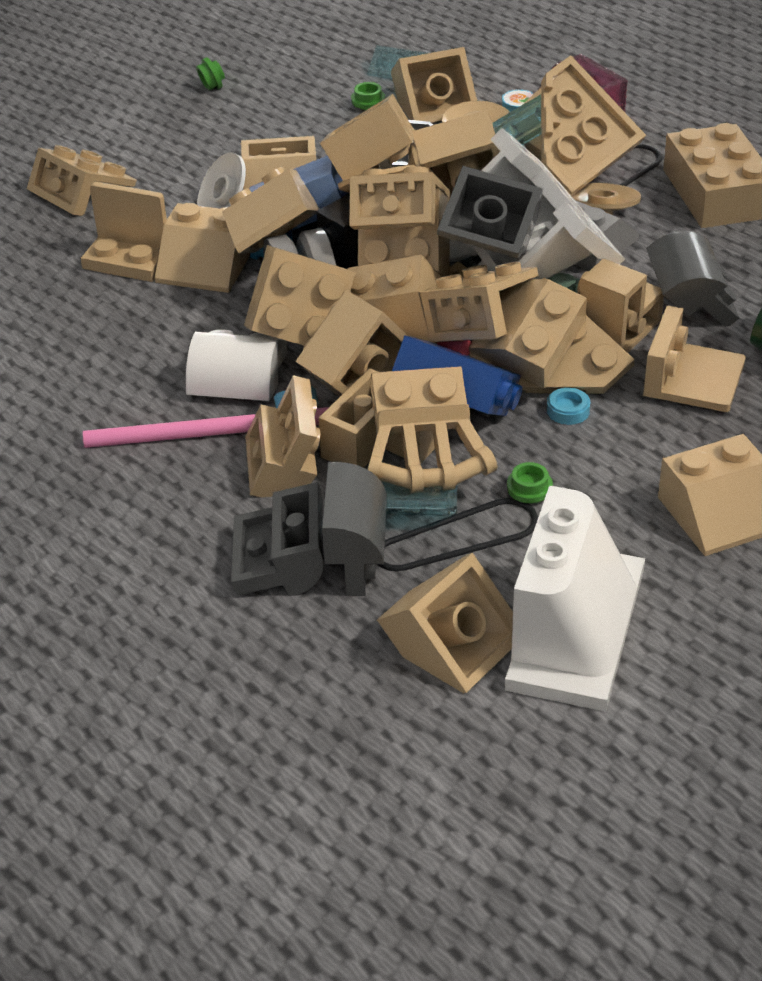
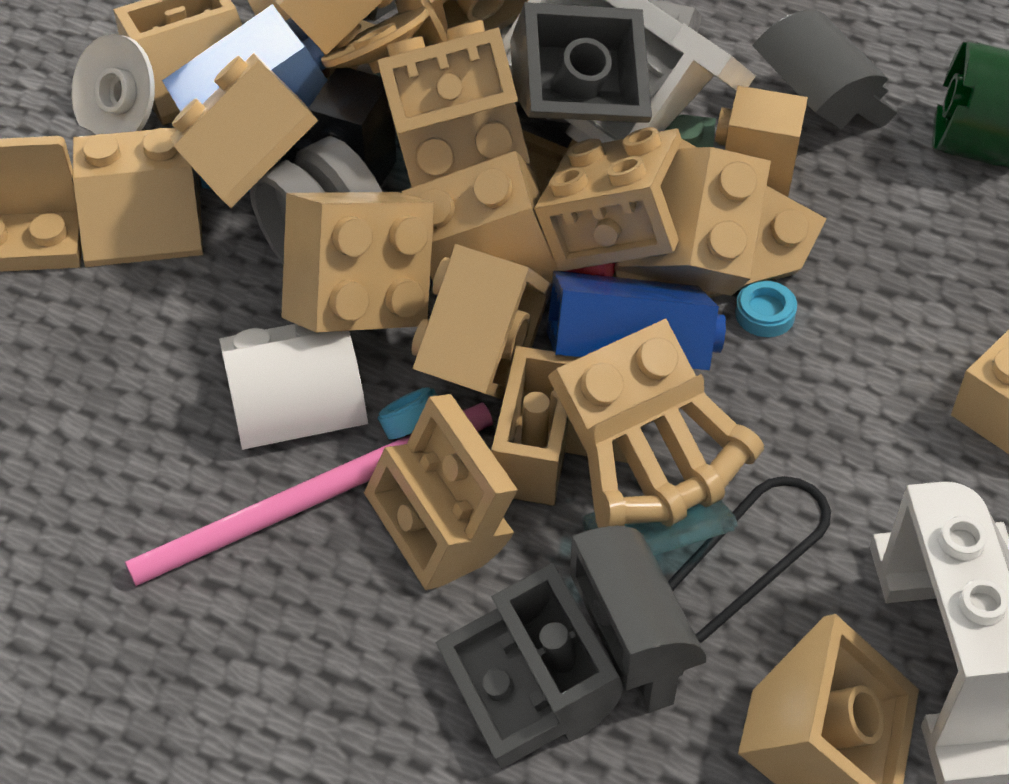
camera: 25 degrees left, 10 degrees up
(529, 482) = (792, 450): bright green plate -> none
(688, 371) = (890, 212): tan bracket -> none

